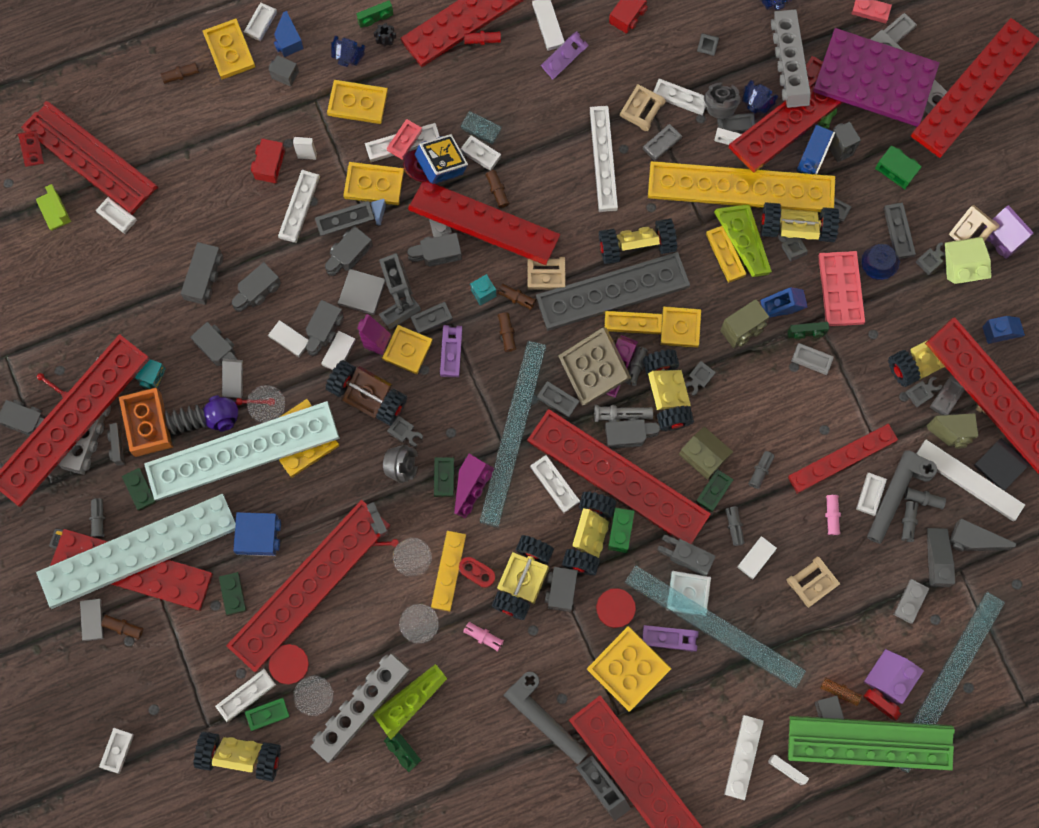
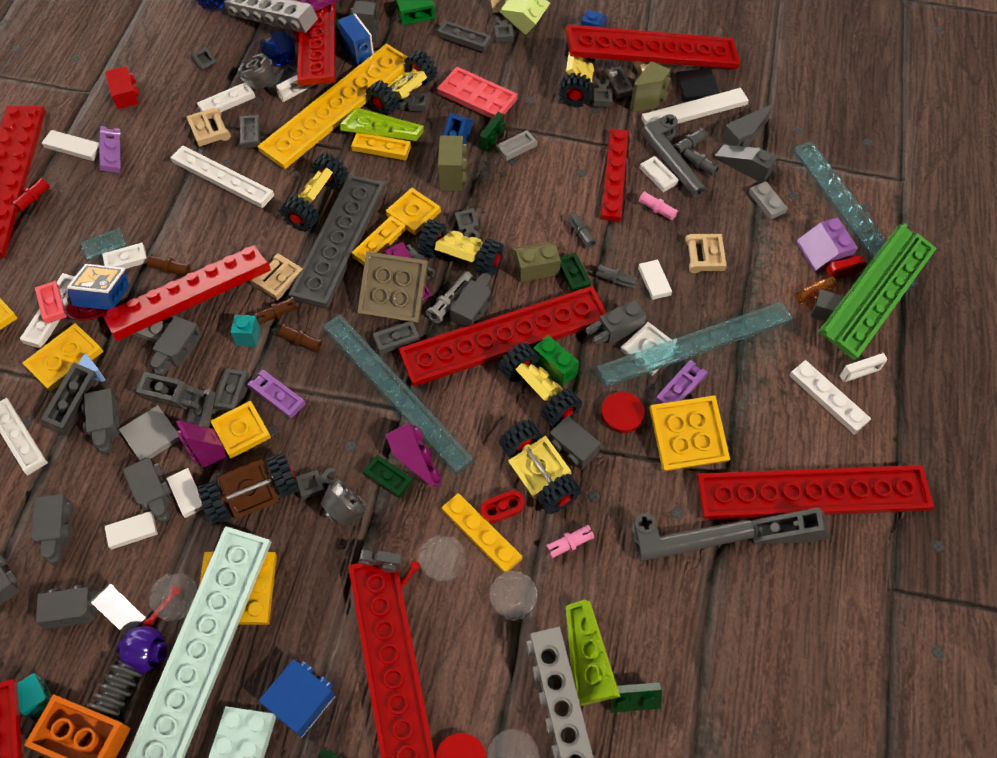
camera: 55 degrees left, 15 degrees down
(555, 484) = (470, 387): white plate -> none
(880, 261) = (477, 57): clear blue cone -> none

